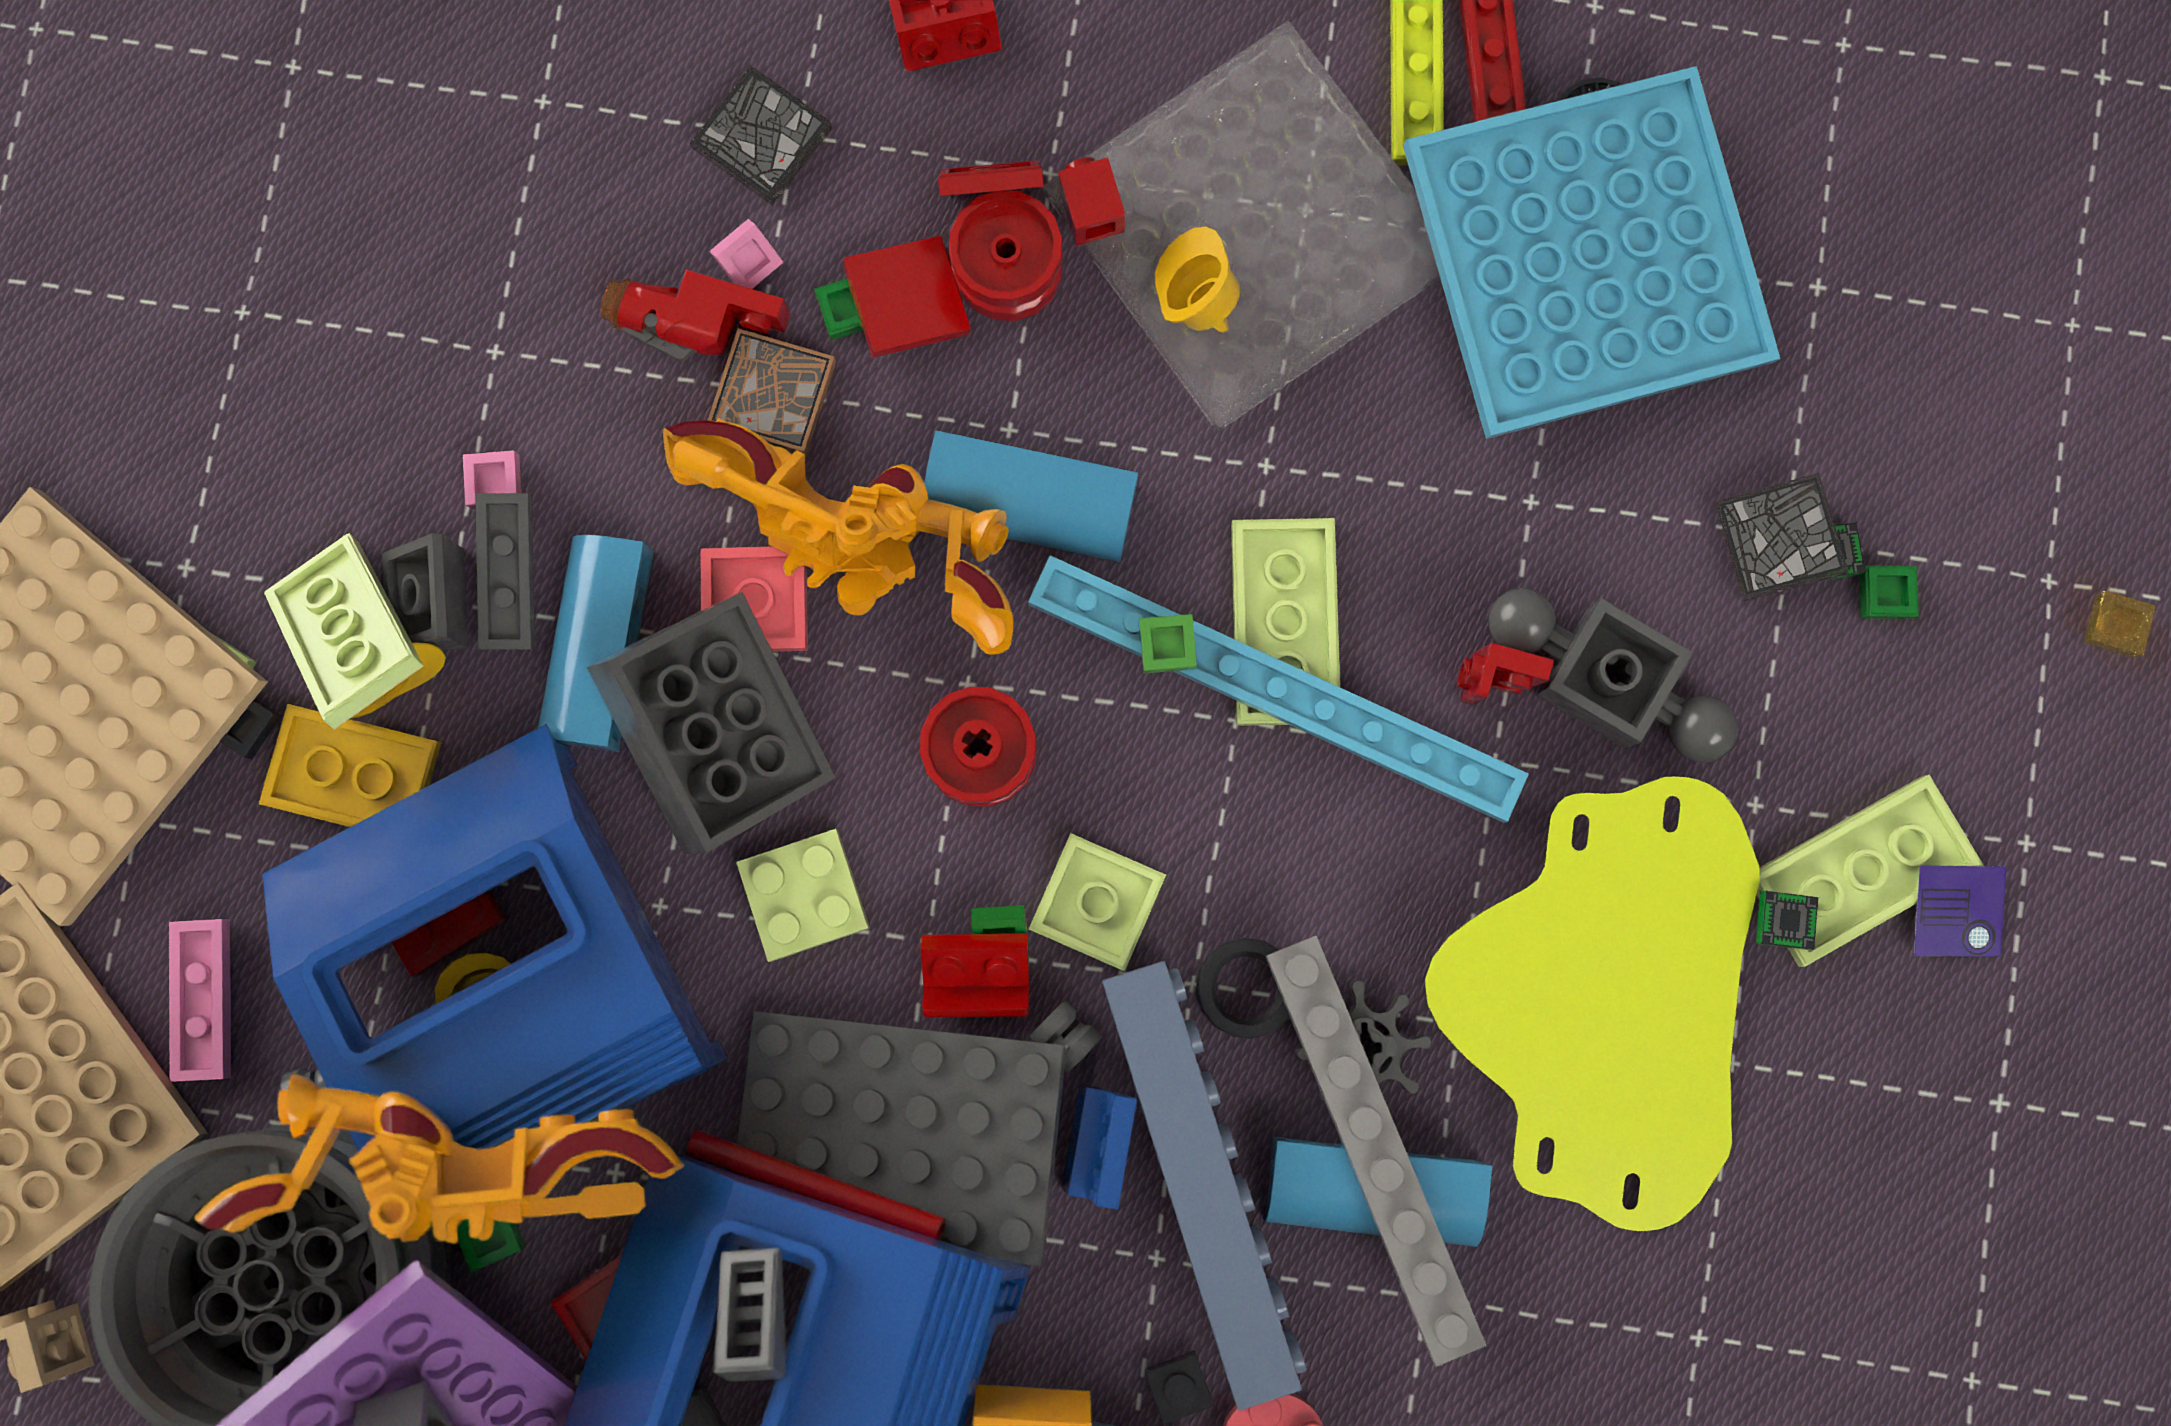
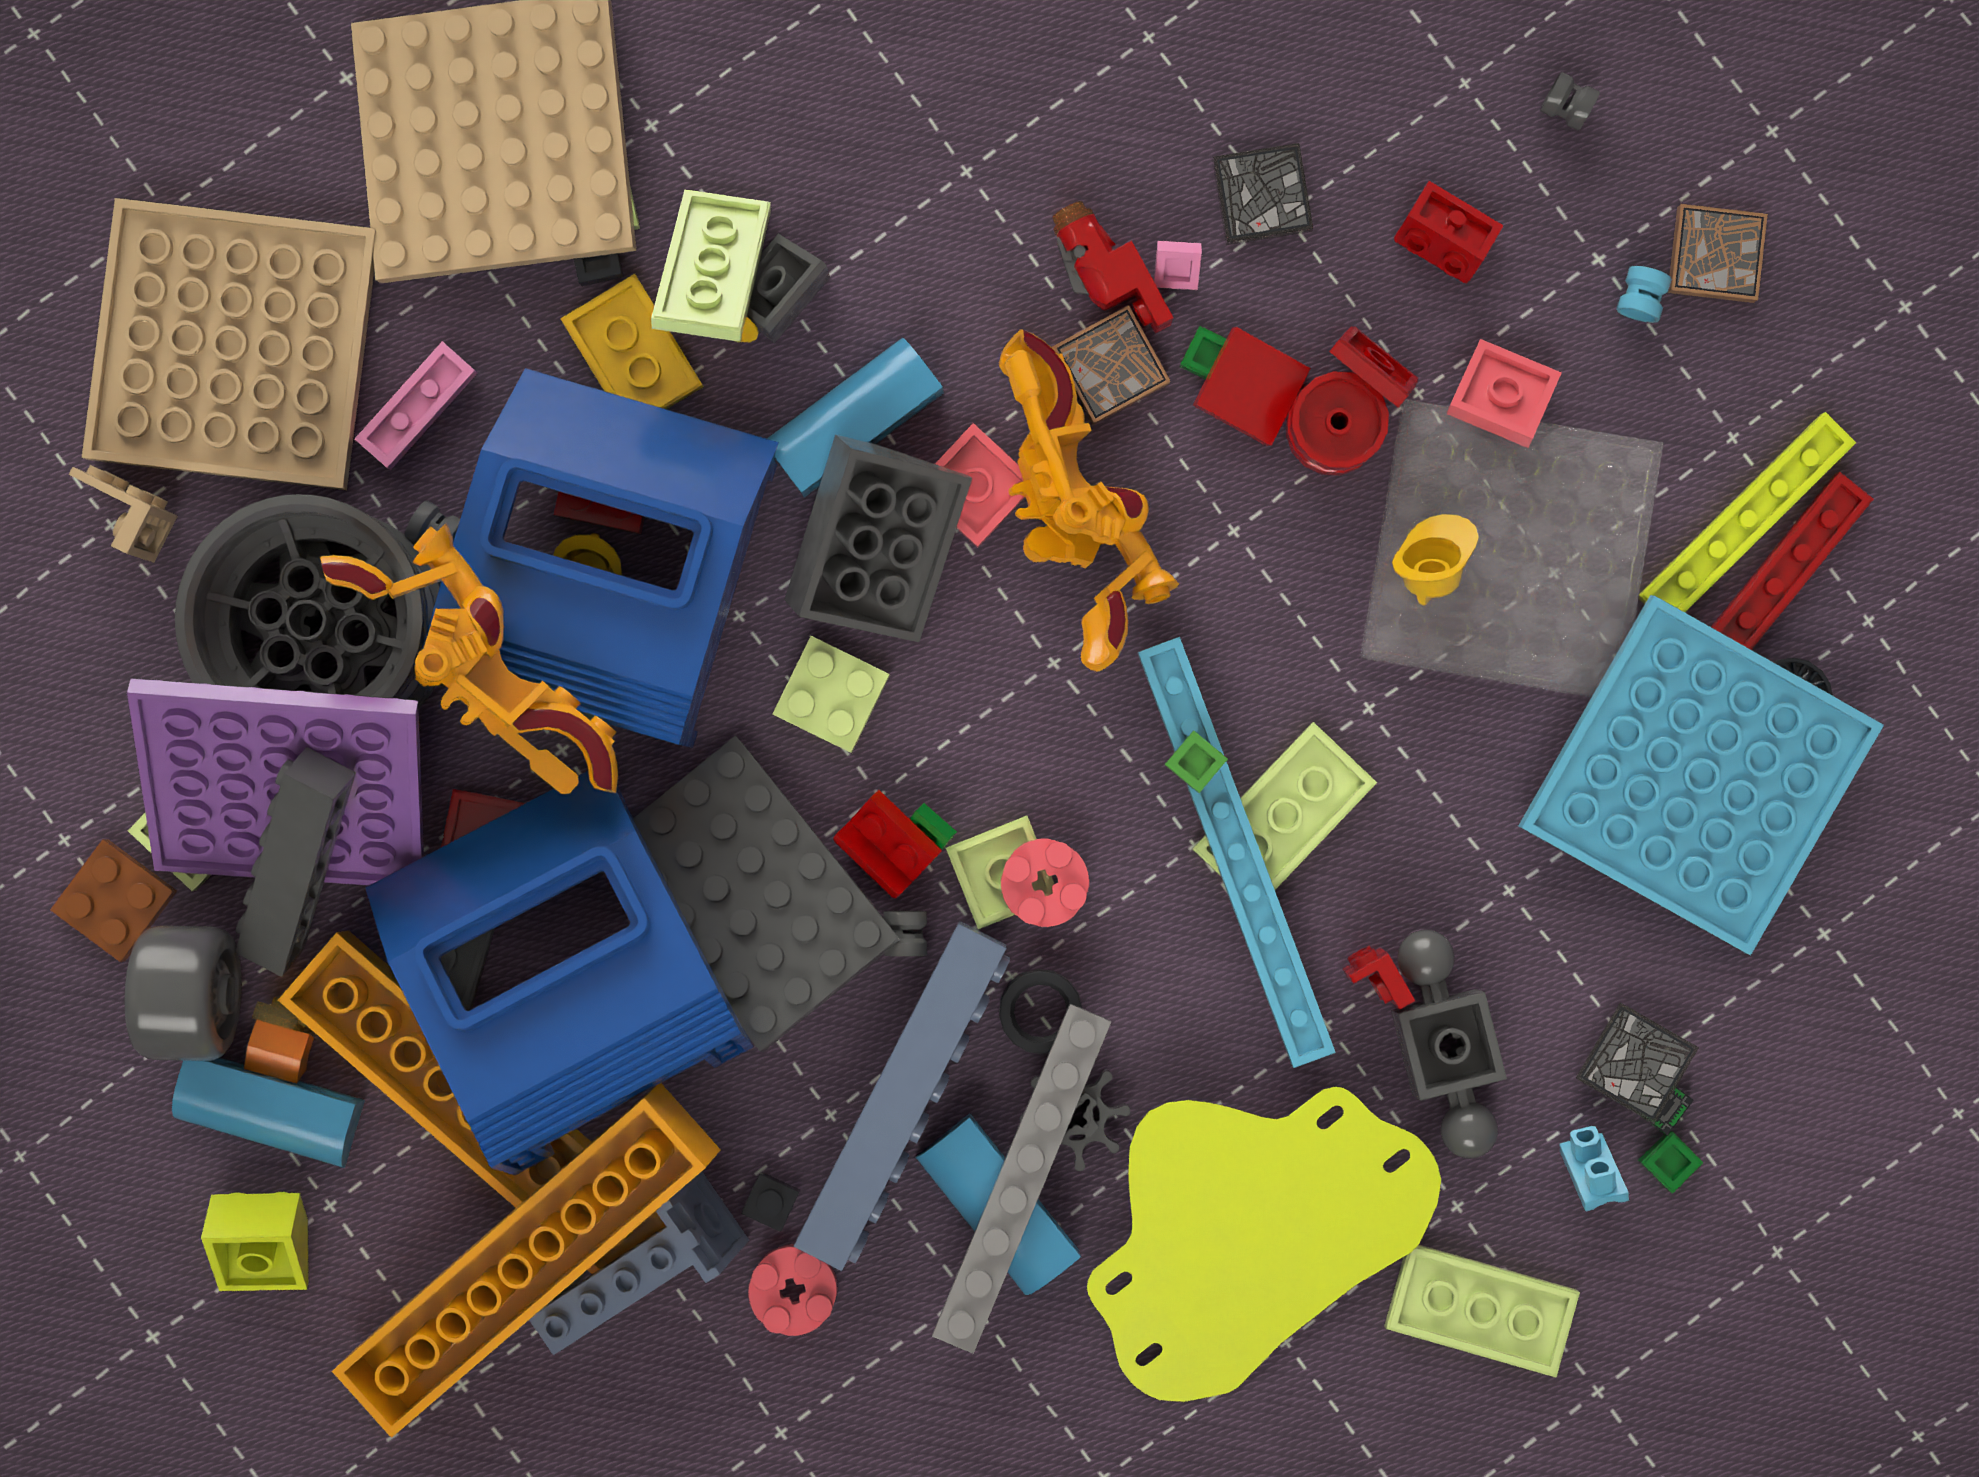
camera: 45 degrees right, 5 degrees up
(480, 1253) = (449, 720): green plate -> none
(490, 474) = (888, 254): bright pink plate -> none
(505, 571) = (842, 321): dark grey plate -> none
(772, 1338) = (573, 942): dark grey slope -> none
(812, 1184) = (672, 872): red piece -> none
(970, 717) = (1025, 684): red wheel -> none
(1044, 495) = (1211, 591): dark azure brick -> none
(1091, 200) = (1422, 440): red brick -> none
(1099, 1145) = (862, 1016): blue slope -> none
(1120, 101) = (1504, 393): none -> coral plate
(1132, 845) = (1032, 904): none -> coral plate
(1787, 920) = (1403, 1291): tile -> none
(1837, 659) = (1593, 1168): none -> medium azure hips
(1960, 911) = (1514, 1389): dark purple sticker -> none
(2119, 624) = (1790, 1319): clear yellow plate -> none

